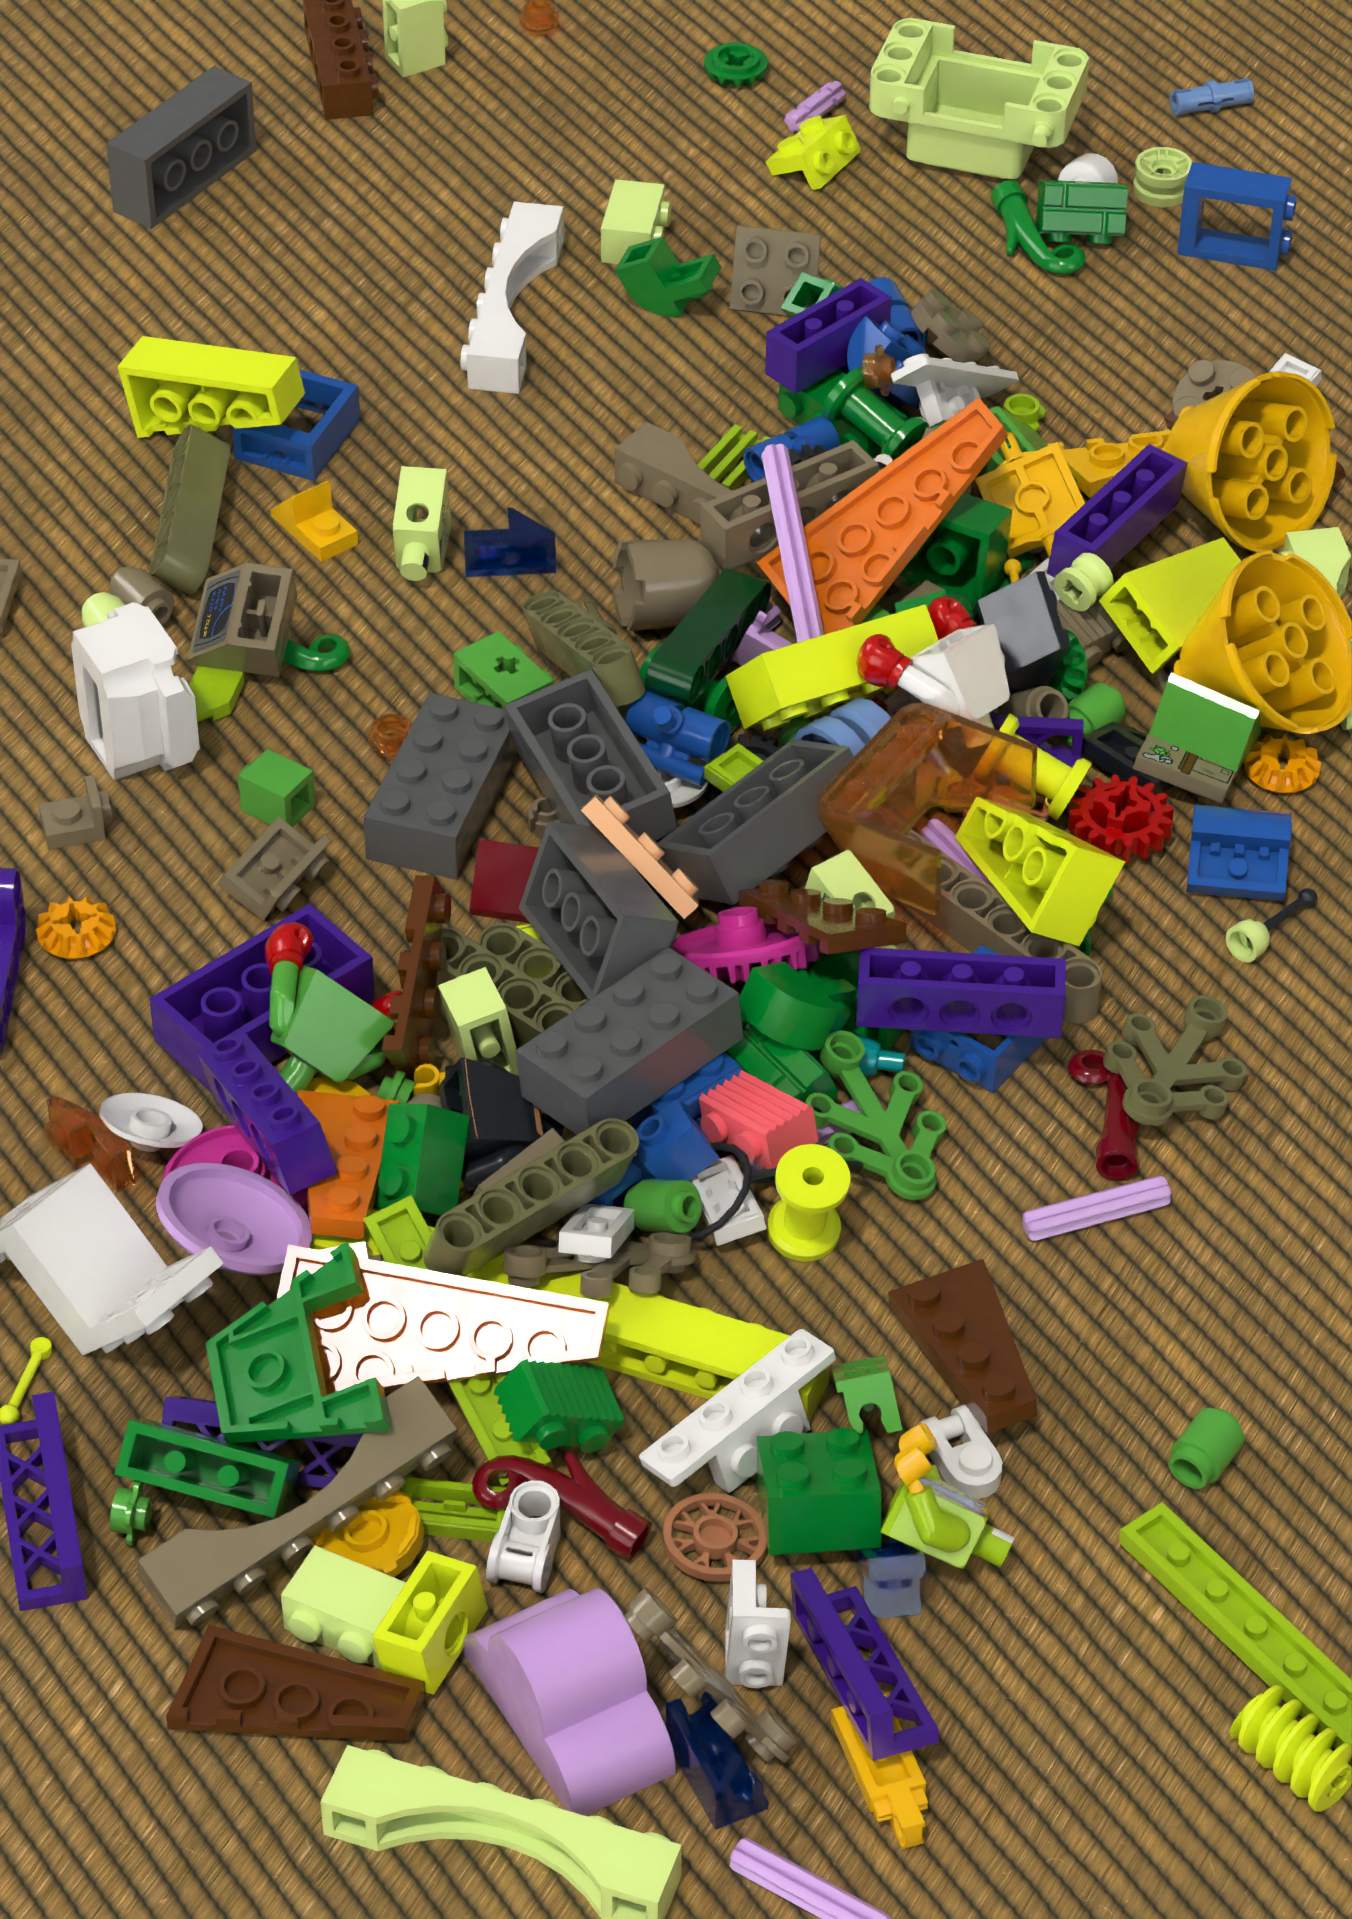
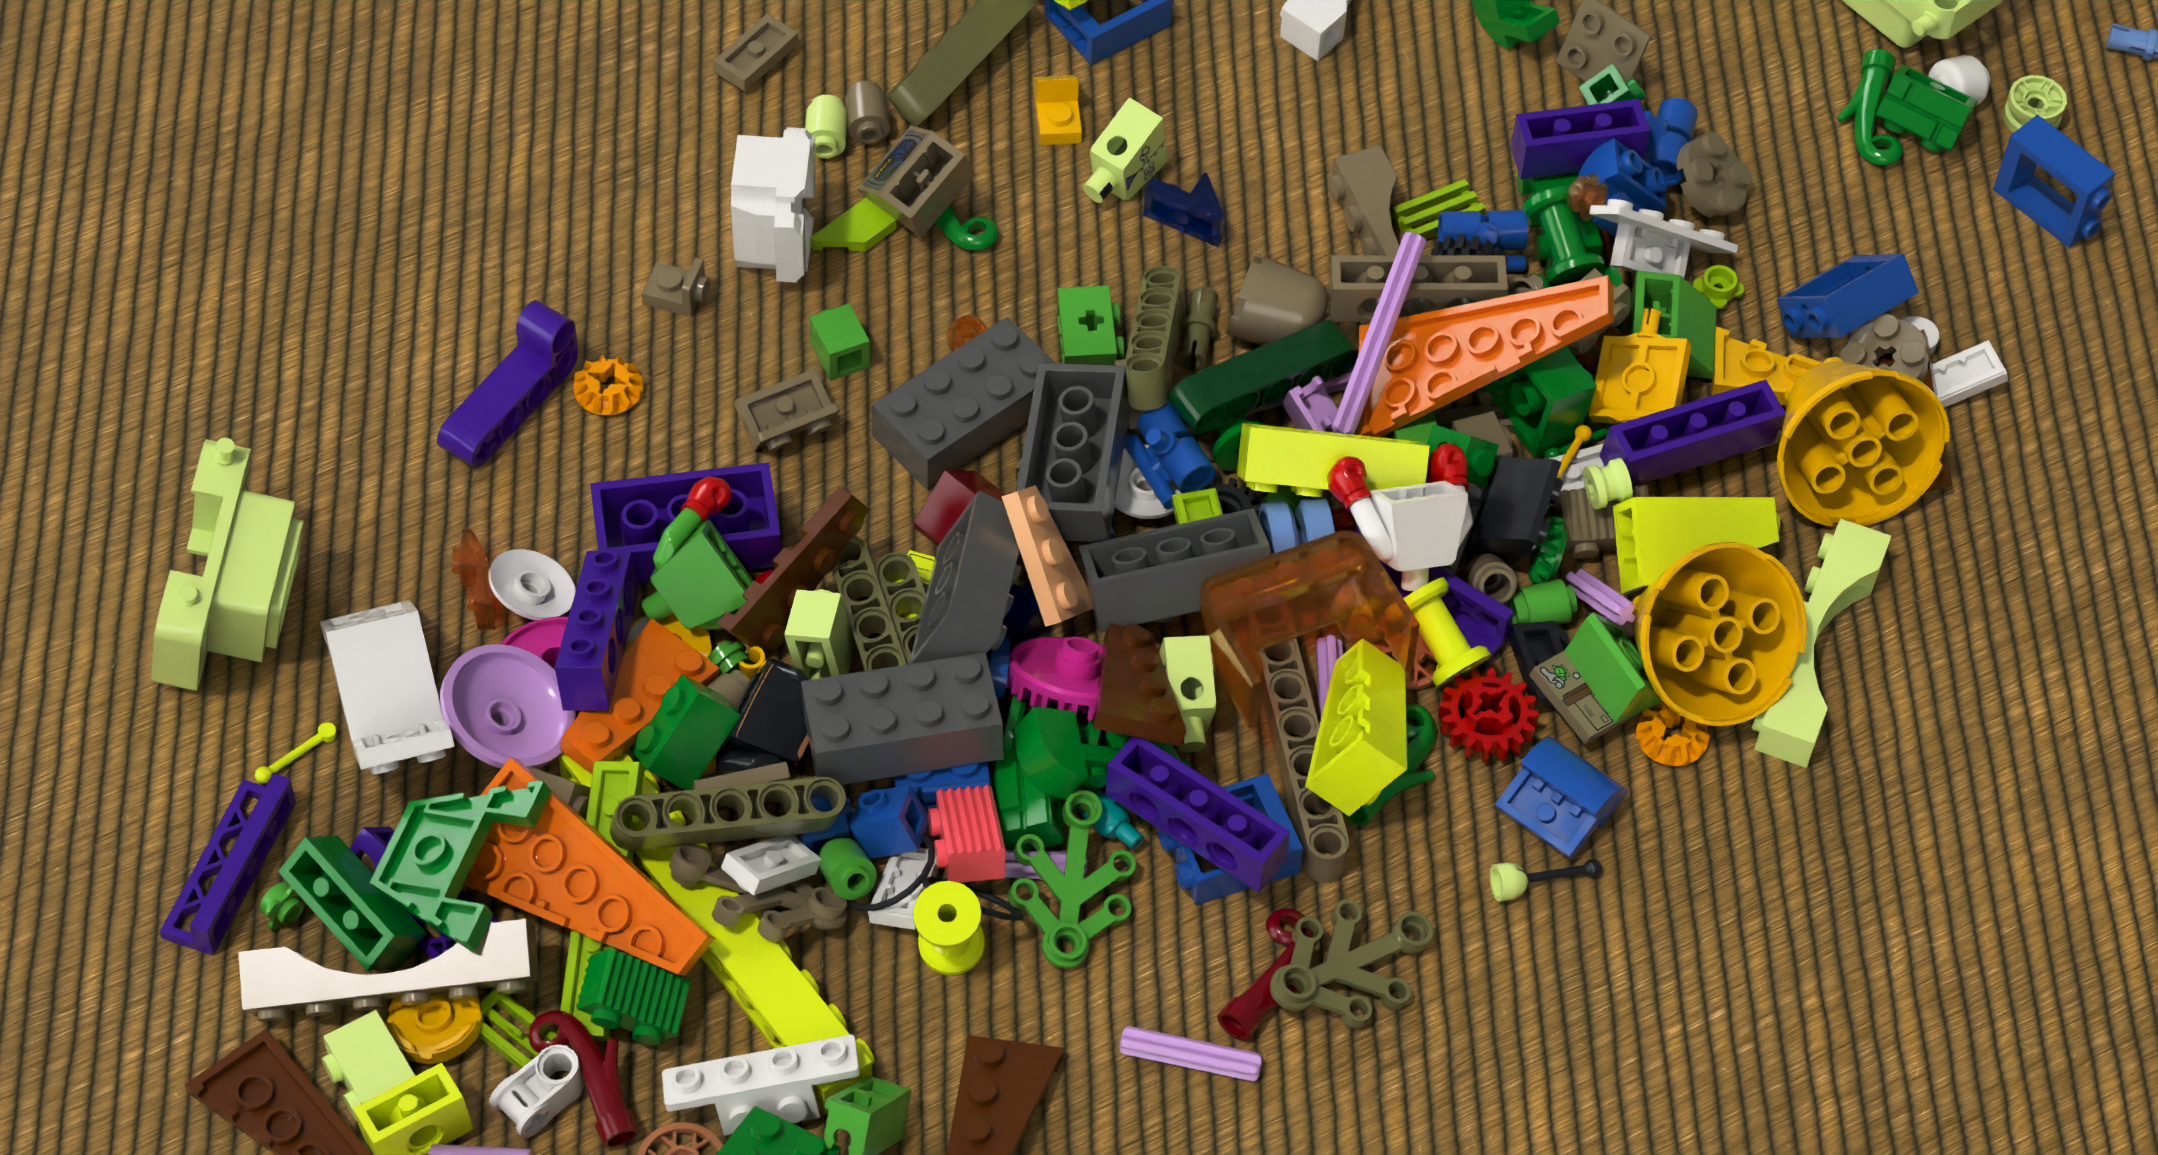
camera: 30 degrees right, 10 degrees up
(1145, 370) = (1847, 296): none -> blue window
(1148, 676) = (1601, 597): none -> lavender axle

